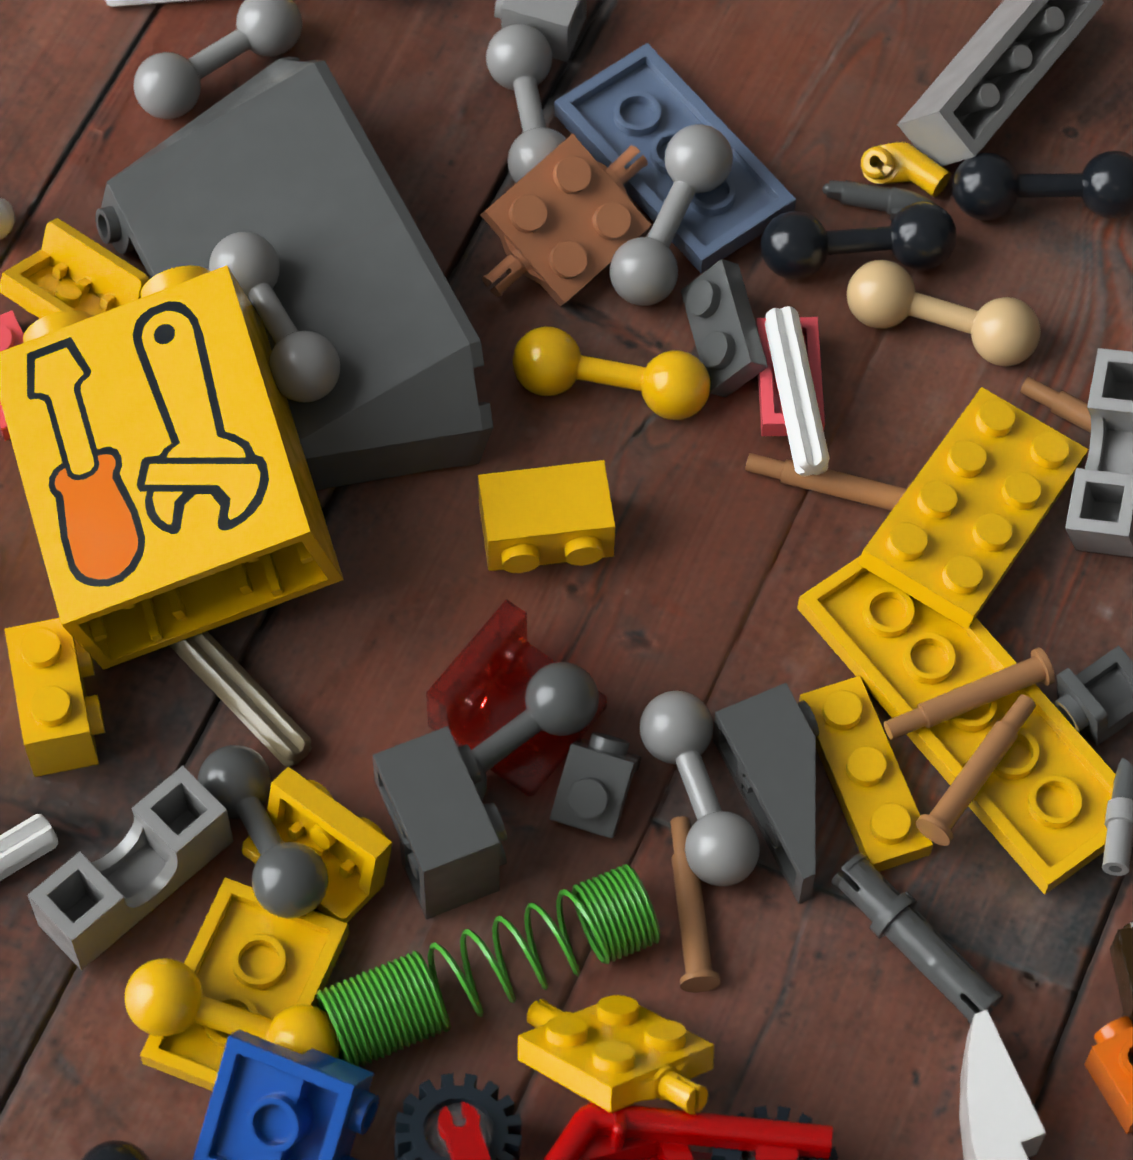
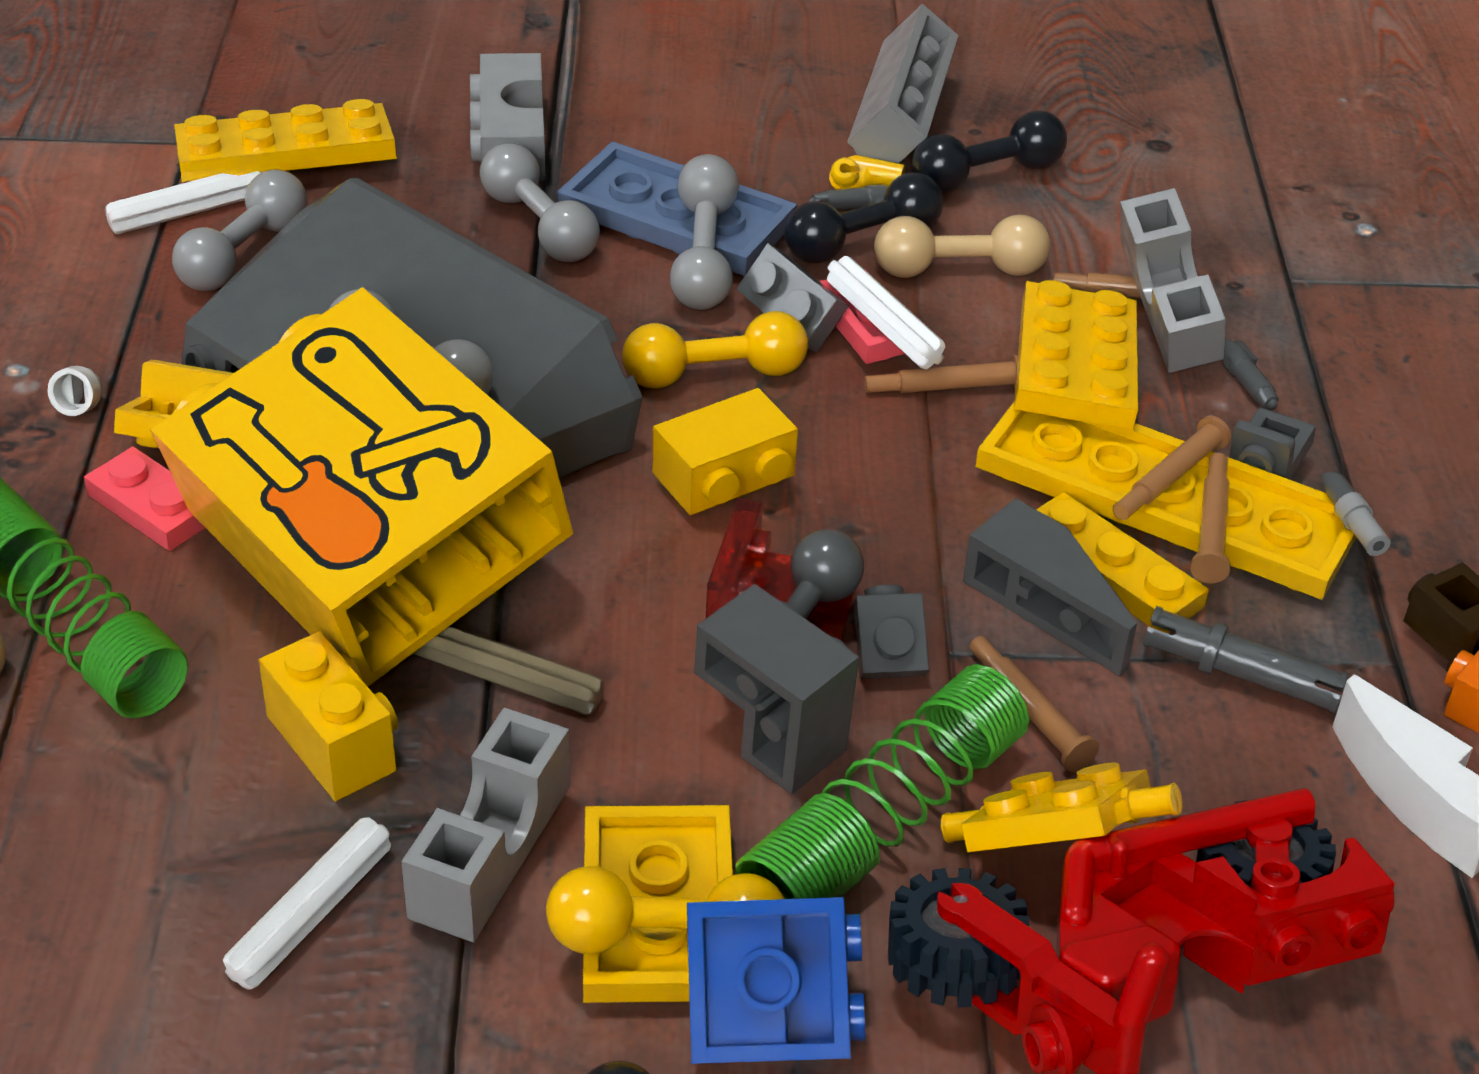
camera: 25 degrees left, 20 degrees down
(288, 875) = (653, 775): dark grey piece -> none
(348, 844) = (665, 746): yellow bracket -> none
(565, 220) = (615, 256): nougat plate -> none
(720, 844) = (1031, 638): light grey piece -> none

